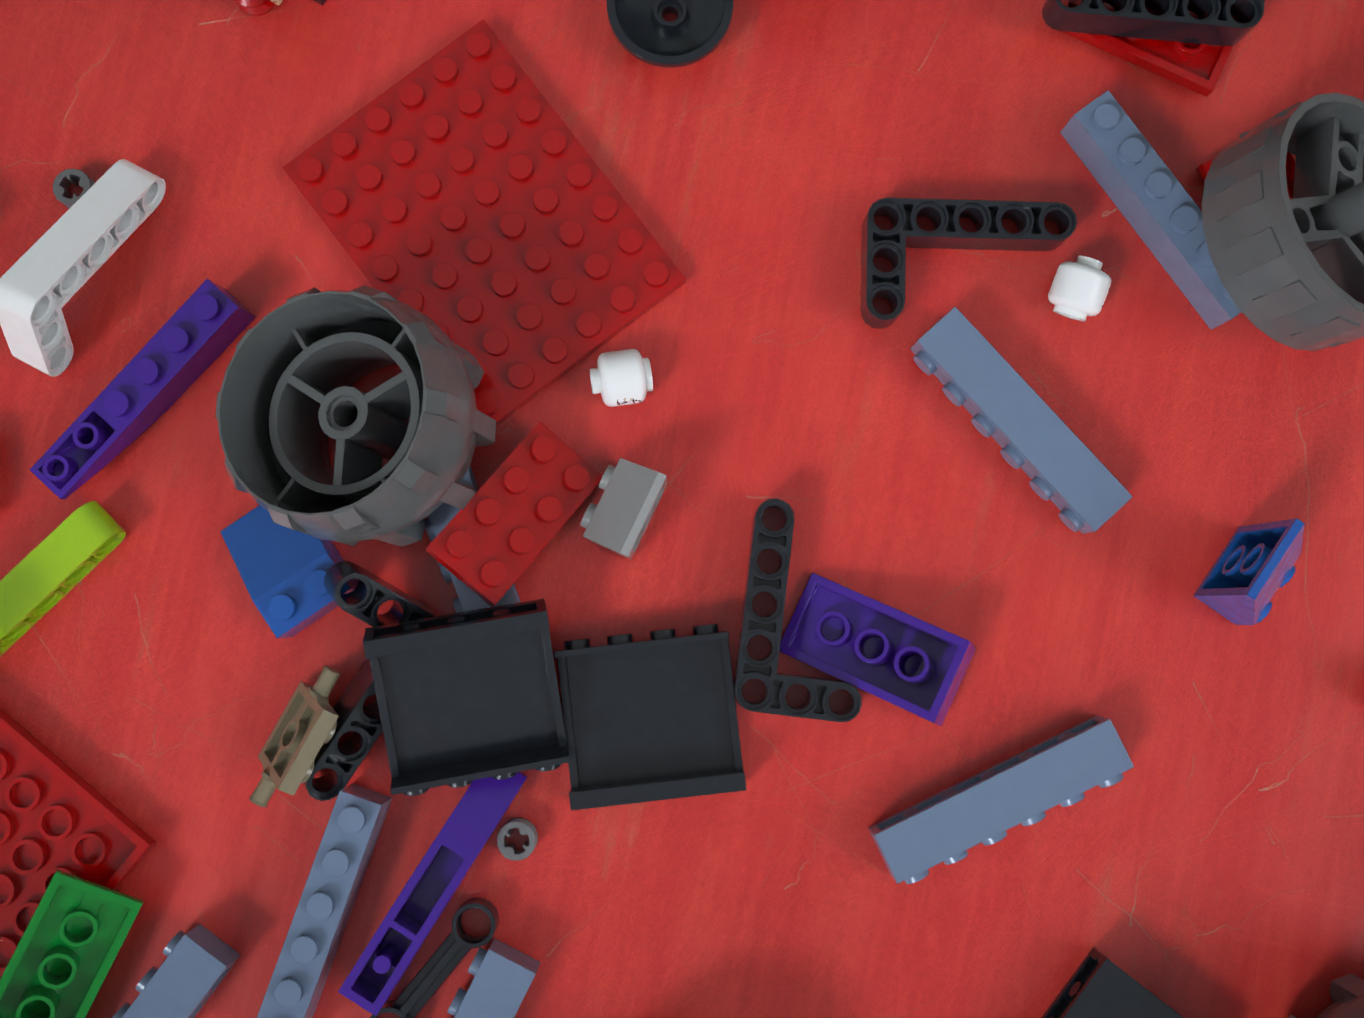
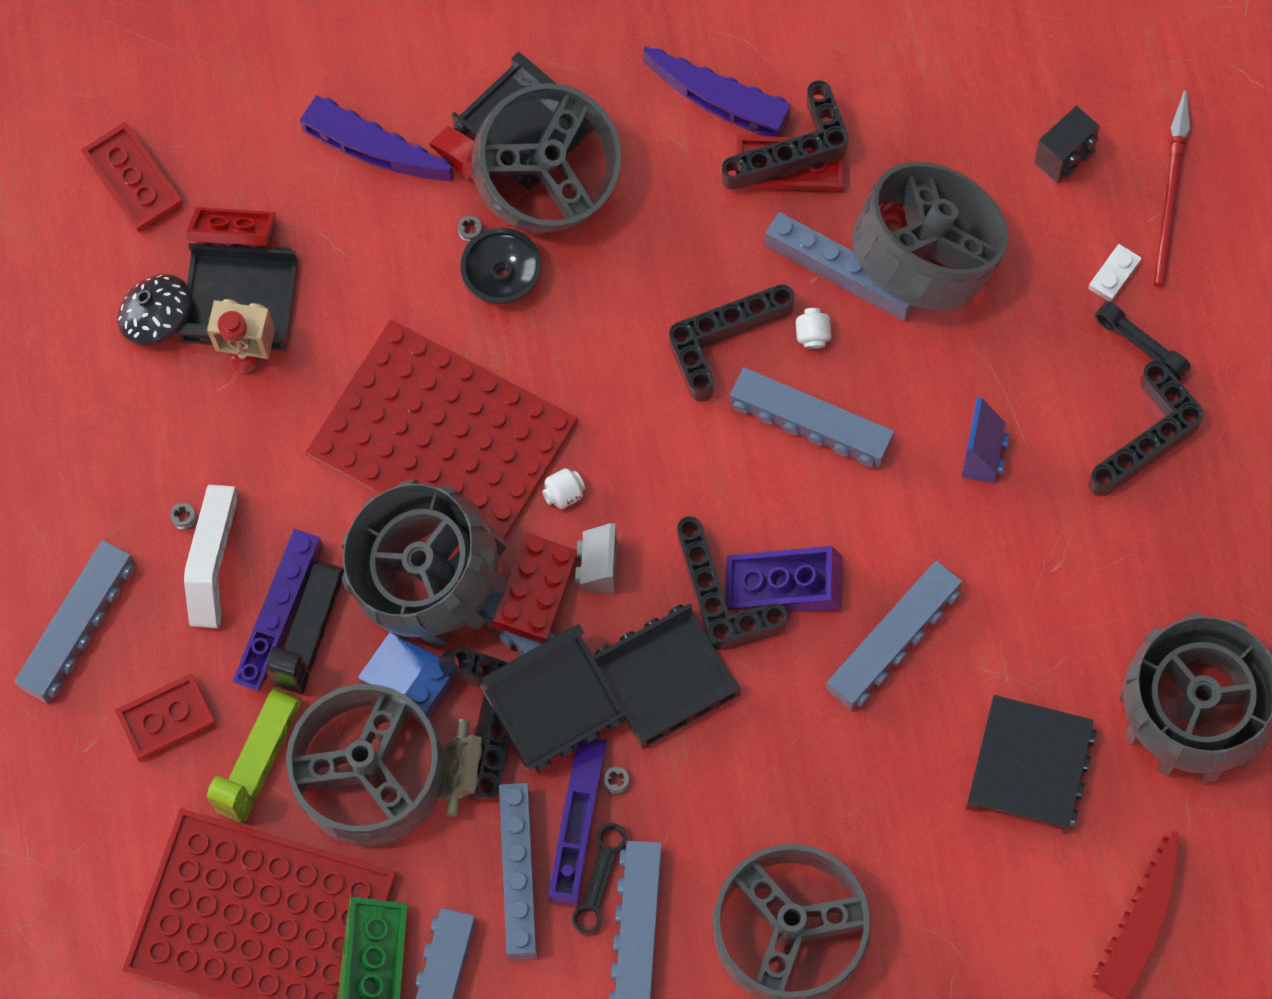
camera: 15 degrees left, 15 degrees down
(62, 657) = (366, 764): none -> dark grey wheel
(159, 452) = (293, 665): none -> black beam

